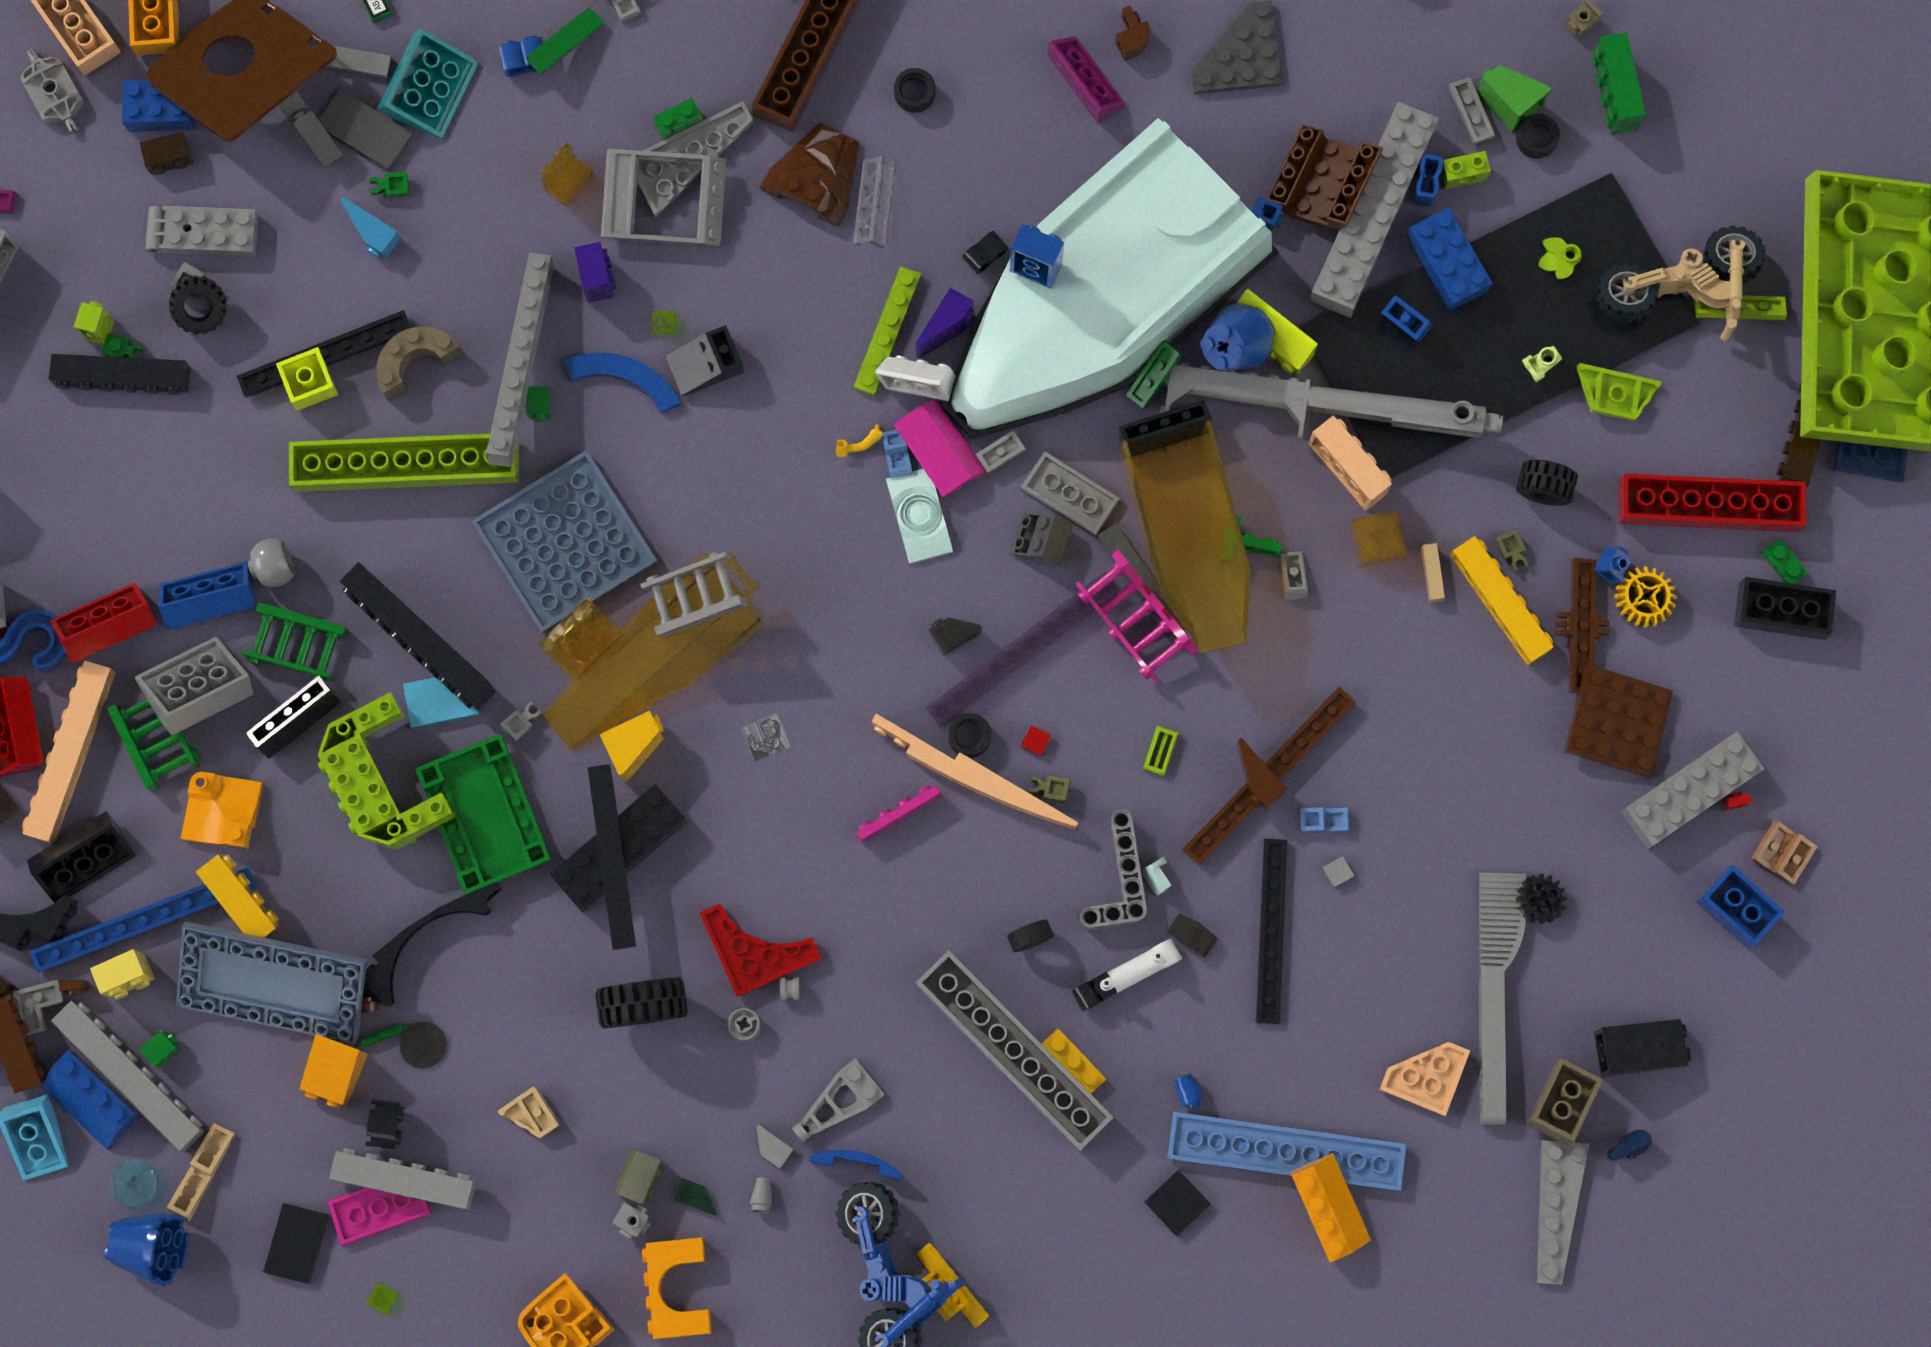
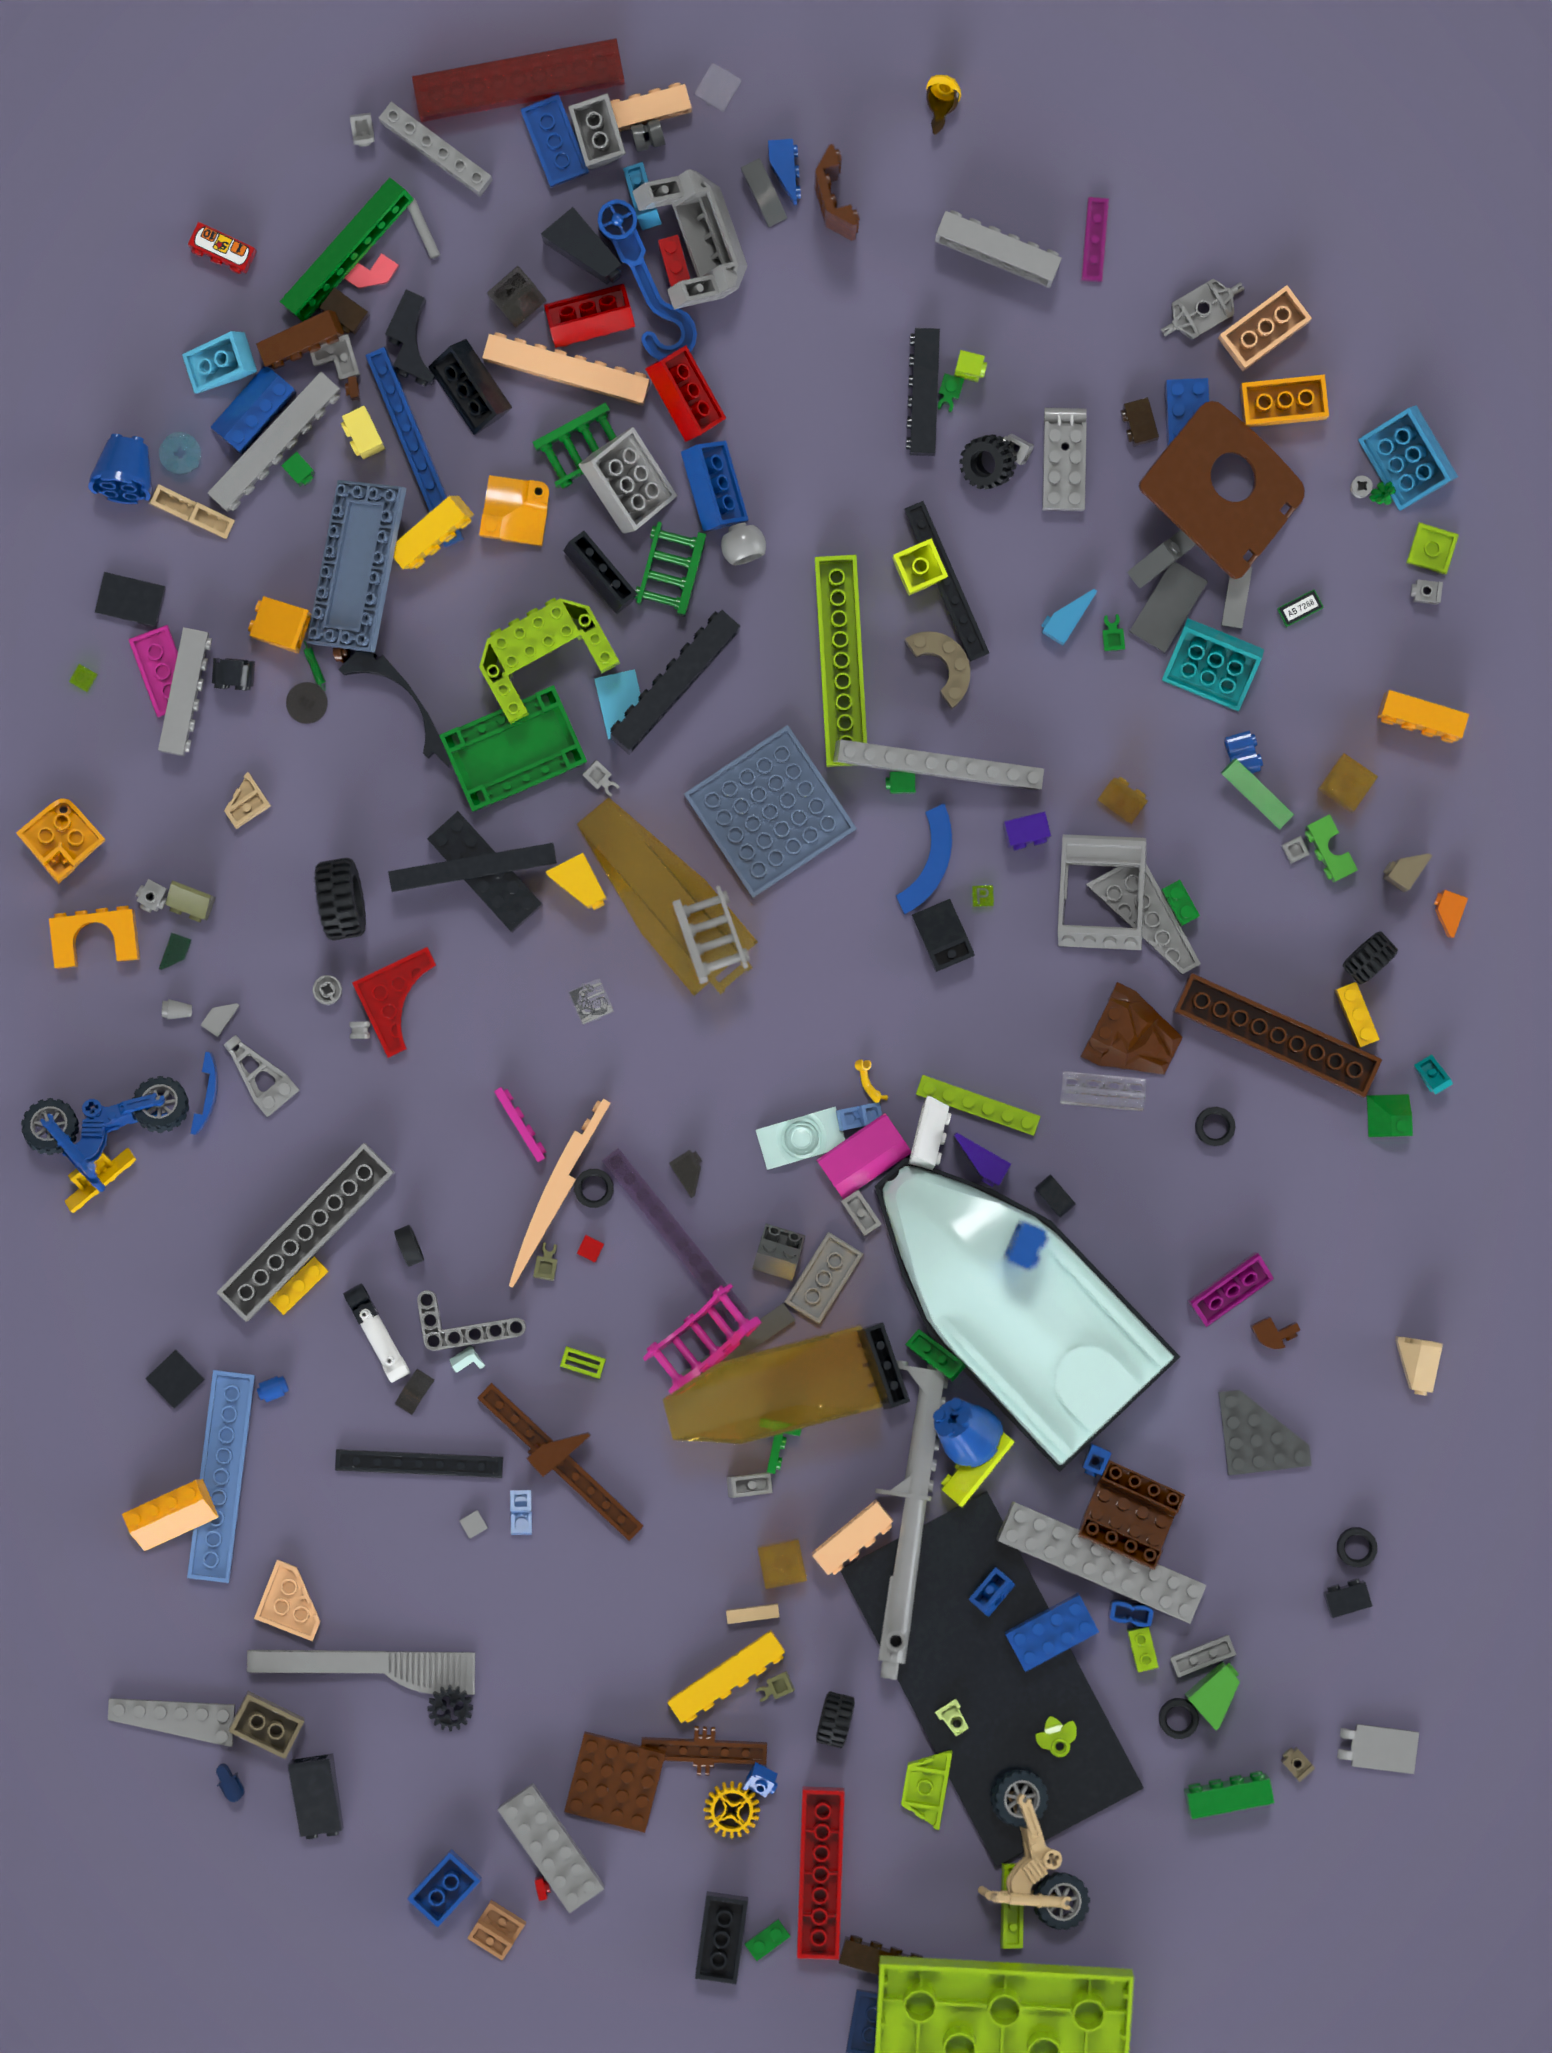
camera: 85 degrees right, 10 degrees up
(581, 638) = (677, 830): clear yellow slope -> none

